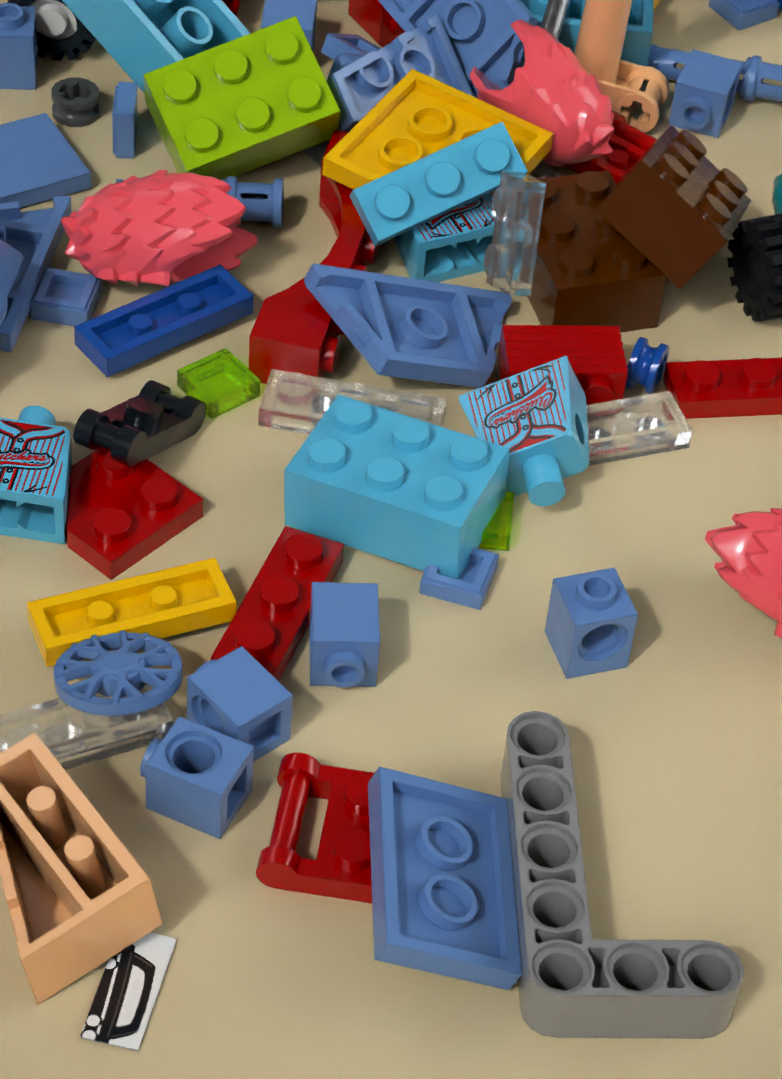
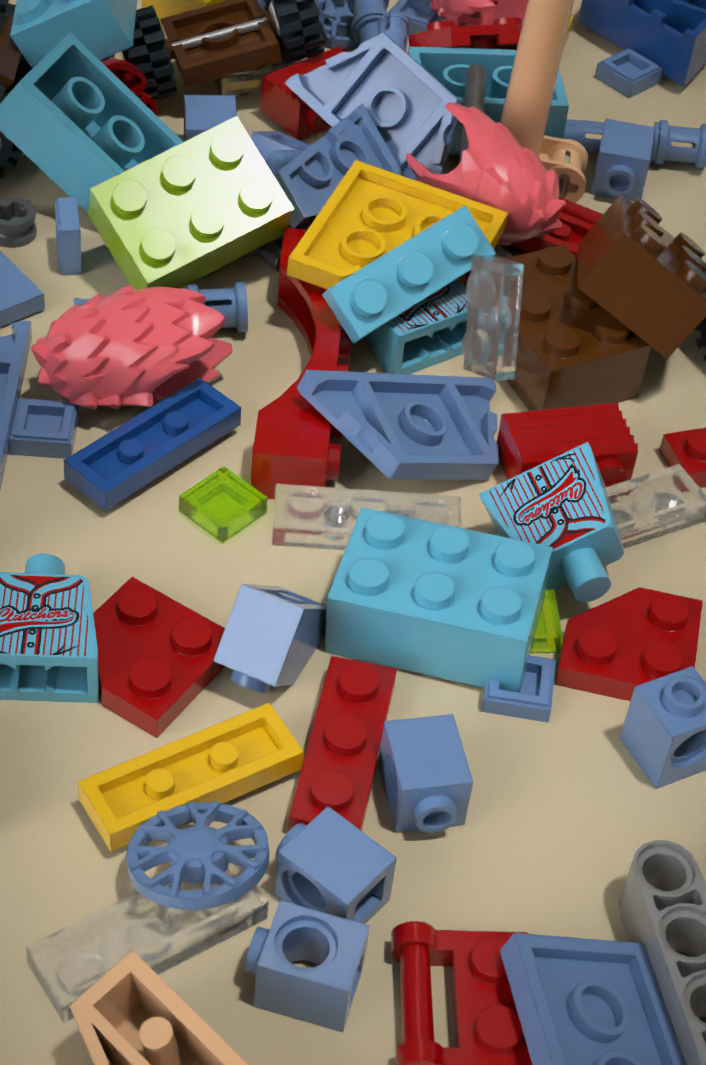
camera: 10 degrees left, 0 degrees up
(141, 424) = (157, 561): black plate -> none
(229, 501) = (270, 636): none -> slope
(575, 542) = (629, 642): none -> red plate
(647, 365) = (649, 438): blue bush -> none

